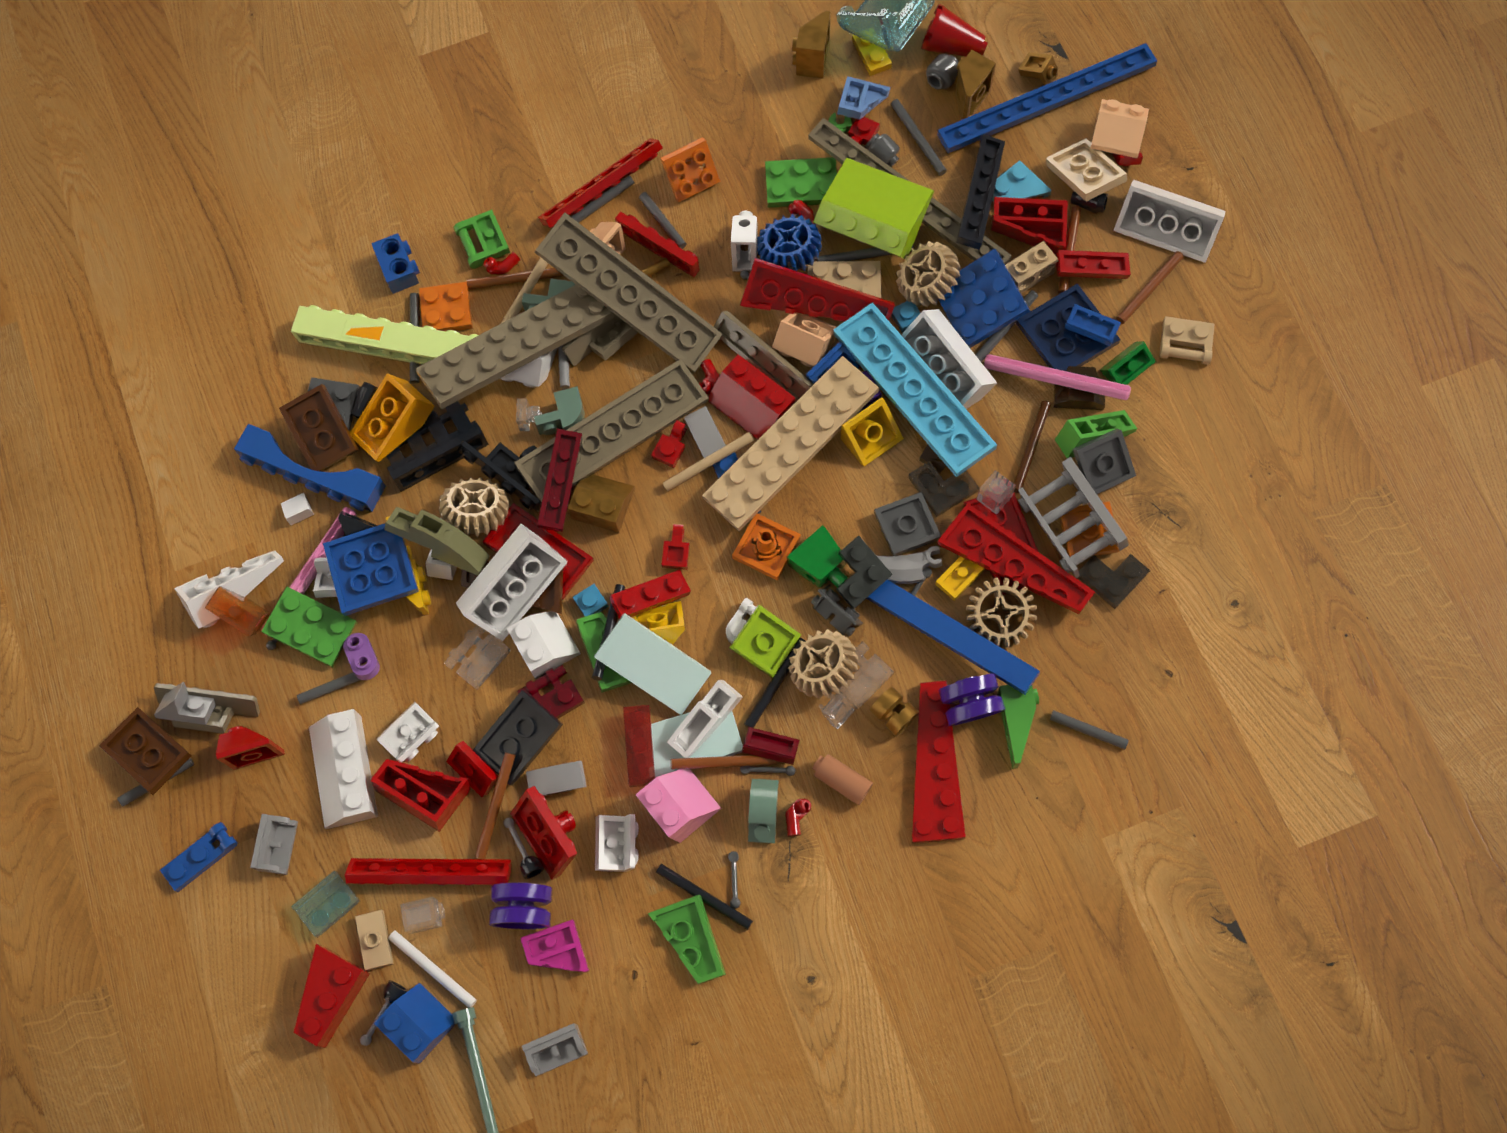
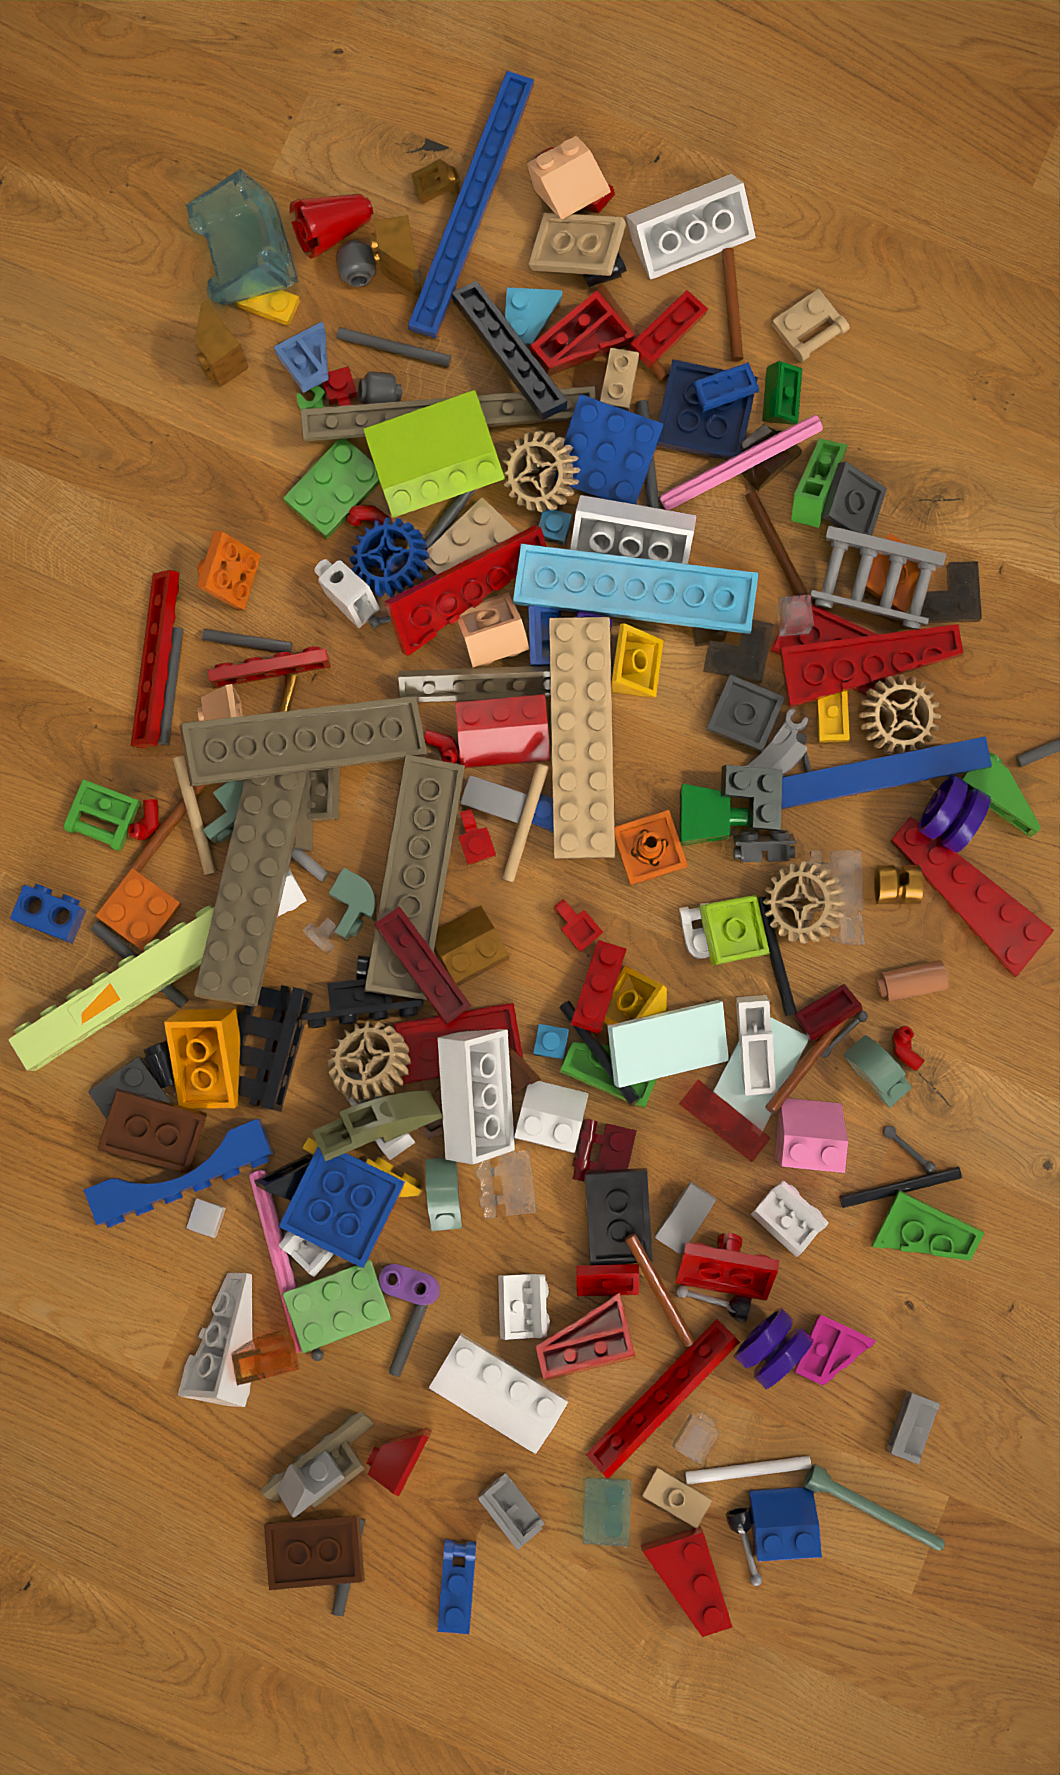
camera: 50 degrees left, 10 degrees up
(432, 621) = (443, 1194): none -> sand green brick

